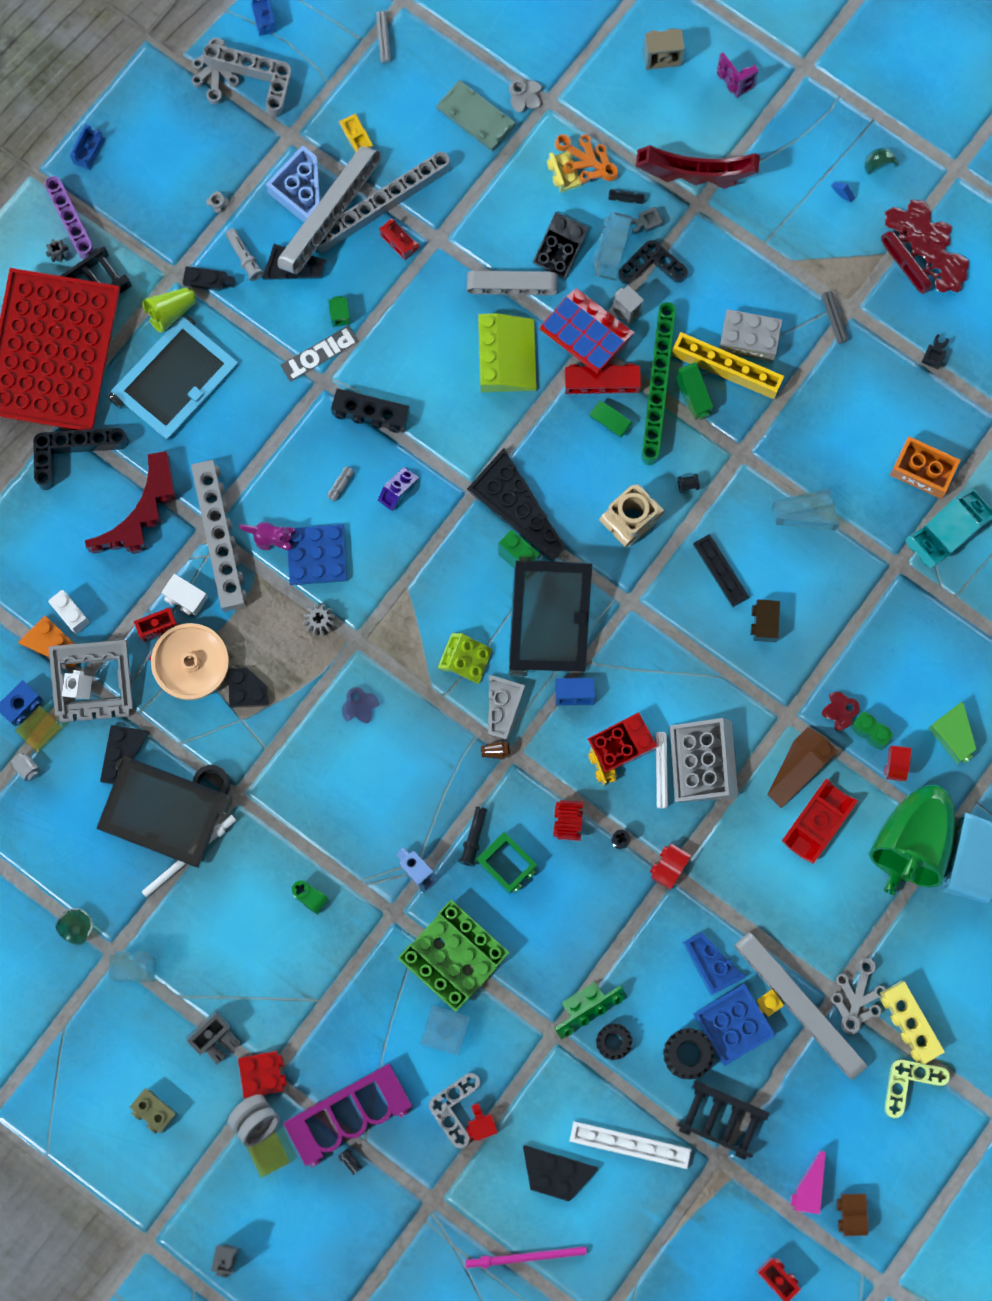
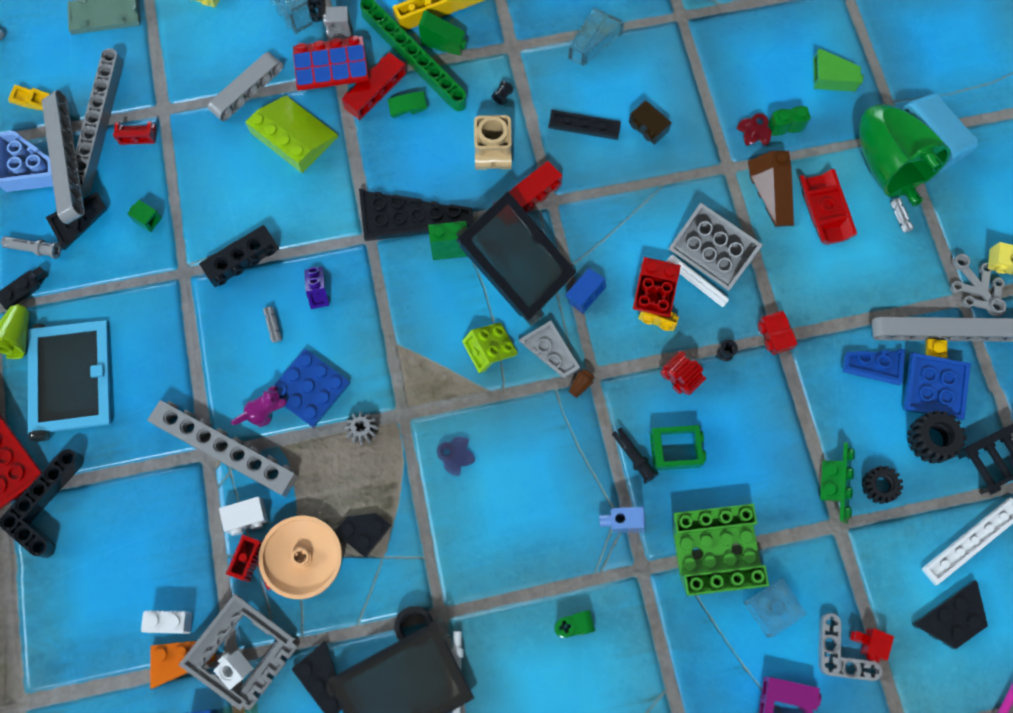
camera: 50 degrees left, 5 degrees down
(146, 513) = (149, 489): dark red arch -> none
(319, 353) = (160, 258): sticker -> none
(562, 244) = (251, 32): black slope -> none
(622, 579) = (537, 186): none -> red brick
(868, 888) = (902, 215): none -> light grey axle
(898, 763) = (832, 119): red brick -> none

